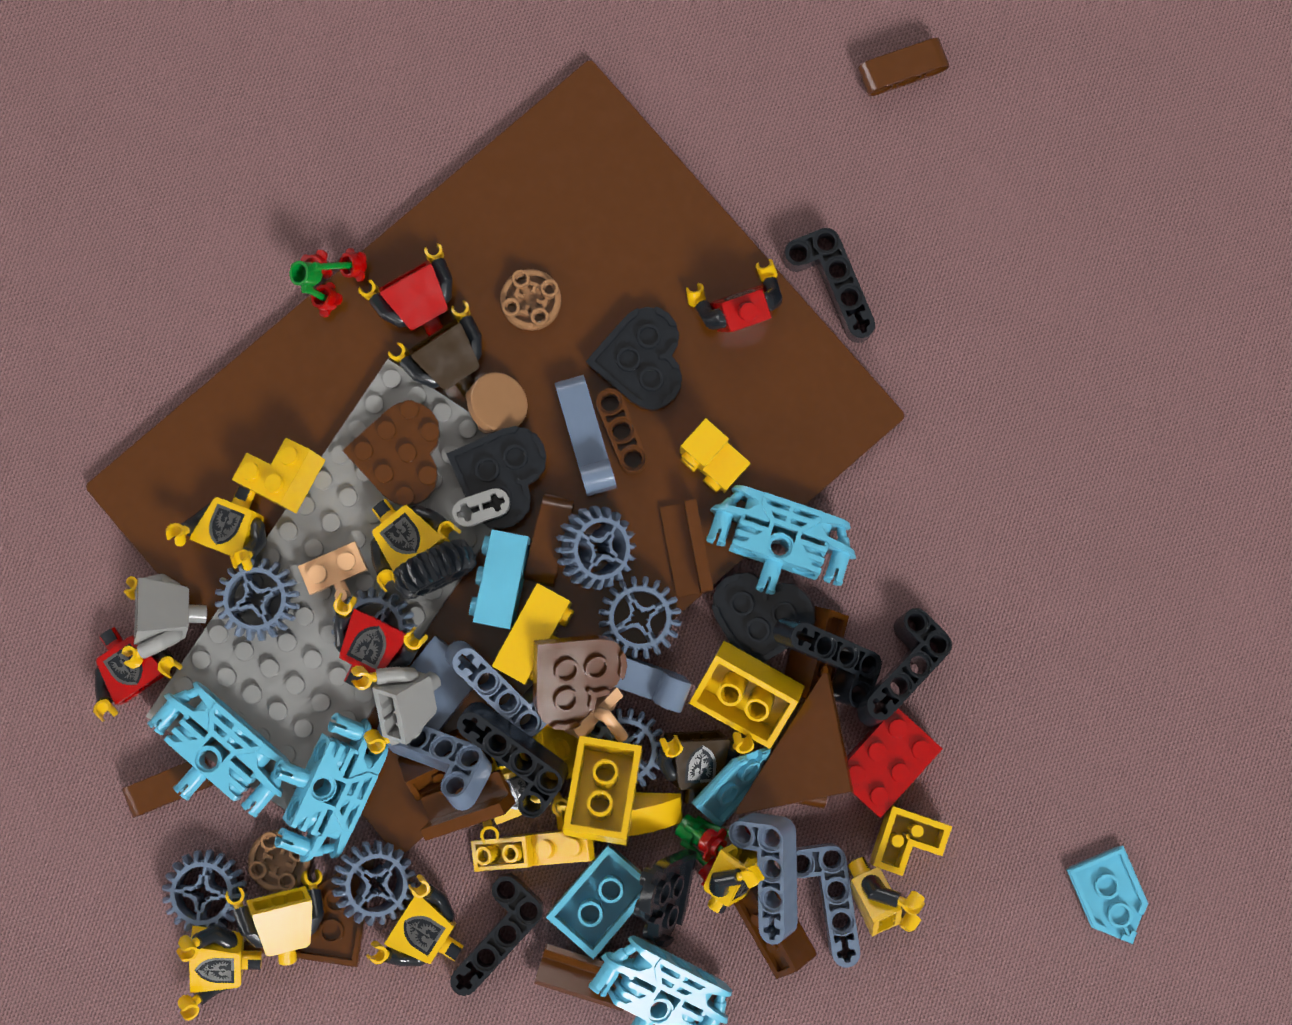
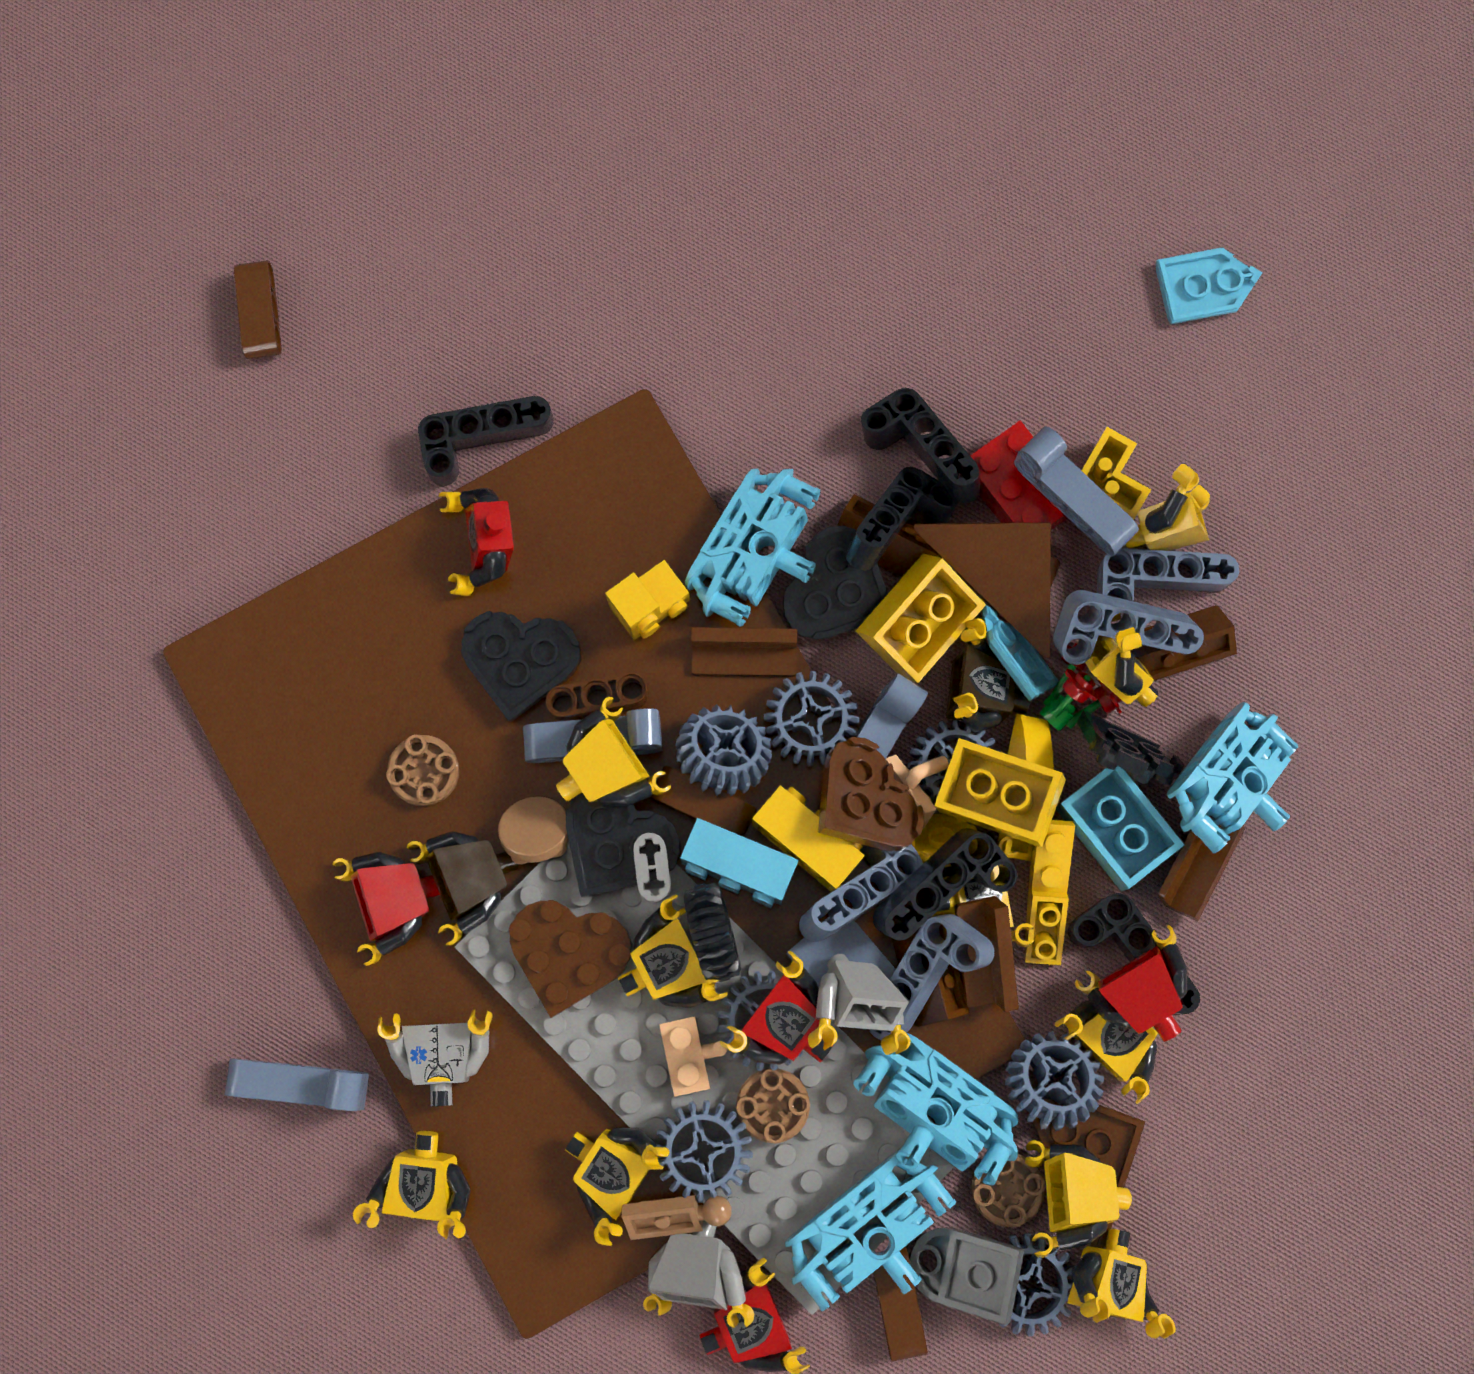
camera: 75 degrees left, 5 degrees down
(188, 375) = (420, 1186): none -> torso
(200, 586) = (673, 1216): none -> medium nougat plate
(201, 840) = (970, 1272): none -> dark grey tile
(253, 258) = (297, 1084): none -> sand blue beam
(285, 479) = (570, 1090): yellow brick -> none
(297, 364) = (438, 1052): none -> light grey torso
(306, 650) = (773, 1105): none -> medium nougat tile
(315, 267) = (331, 1014): plant -> none
(460, 944) = (1144, 990): none -> red torso
(559, 449) = (604, 763): none -> yellow torso
(881, 808) = (1073, 492): none -> sand blue beam

